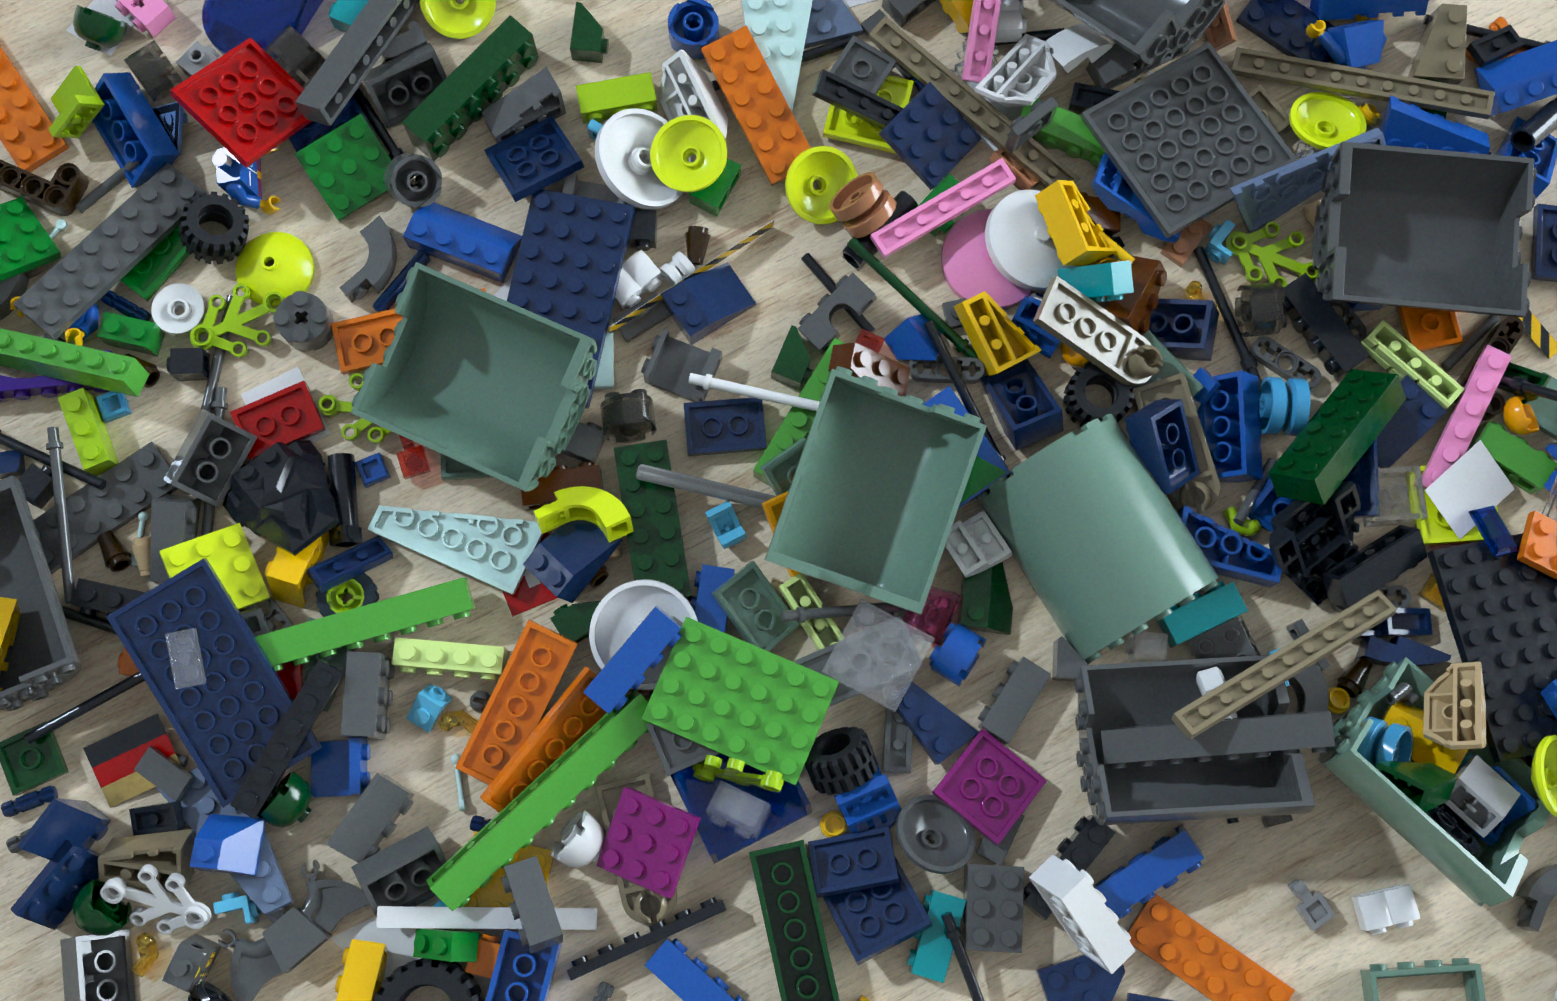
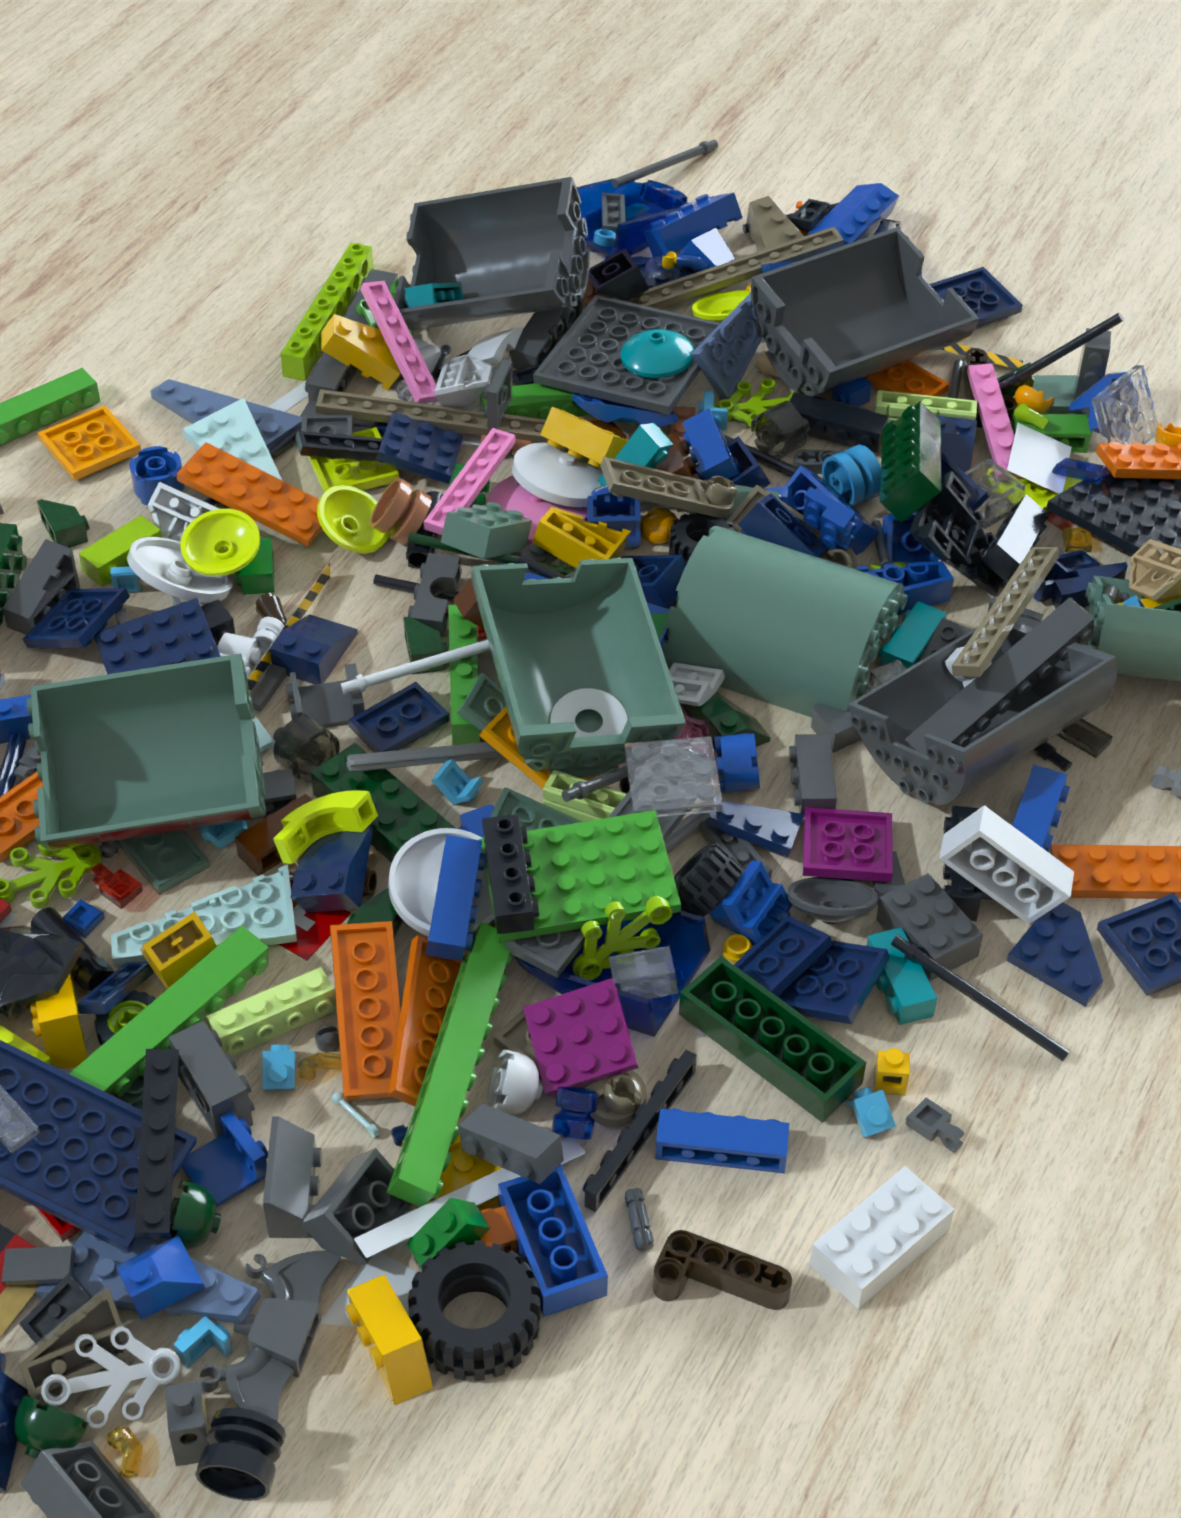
camera: 30 degrees left, 30 degrees down
(412, 563) = (178, 949): none -> yellow slope
(604, 899) = (575, 1112): none -> clear blue wheel
(676, 677) = (508, 874): none -> black brick
(886, 538) = (605, 704): none -> white sticker
(918, 275) = (486, 530): none -> sand green brick
(1024, 33) = (445, 349): none -> black hinge
(1177, 297) = (708, 446): none -> blue brick
(1206, 172) = (657, 353): none -> teal dish
(1212, 468) = (832, 518): none -> blue plate
(1246, 28) = (618, 277): none -> black slope
(1499, 443) = (1026, 414): none -> lime arm

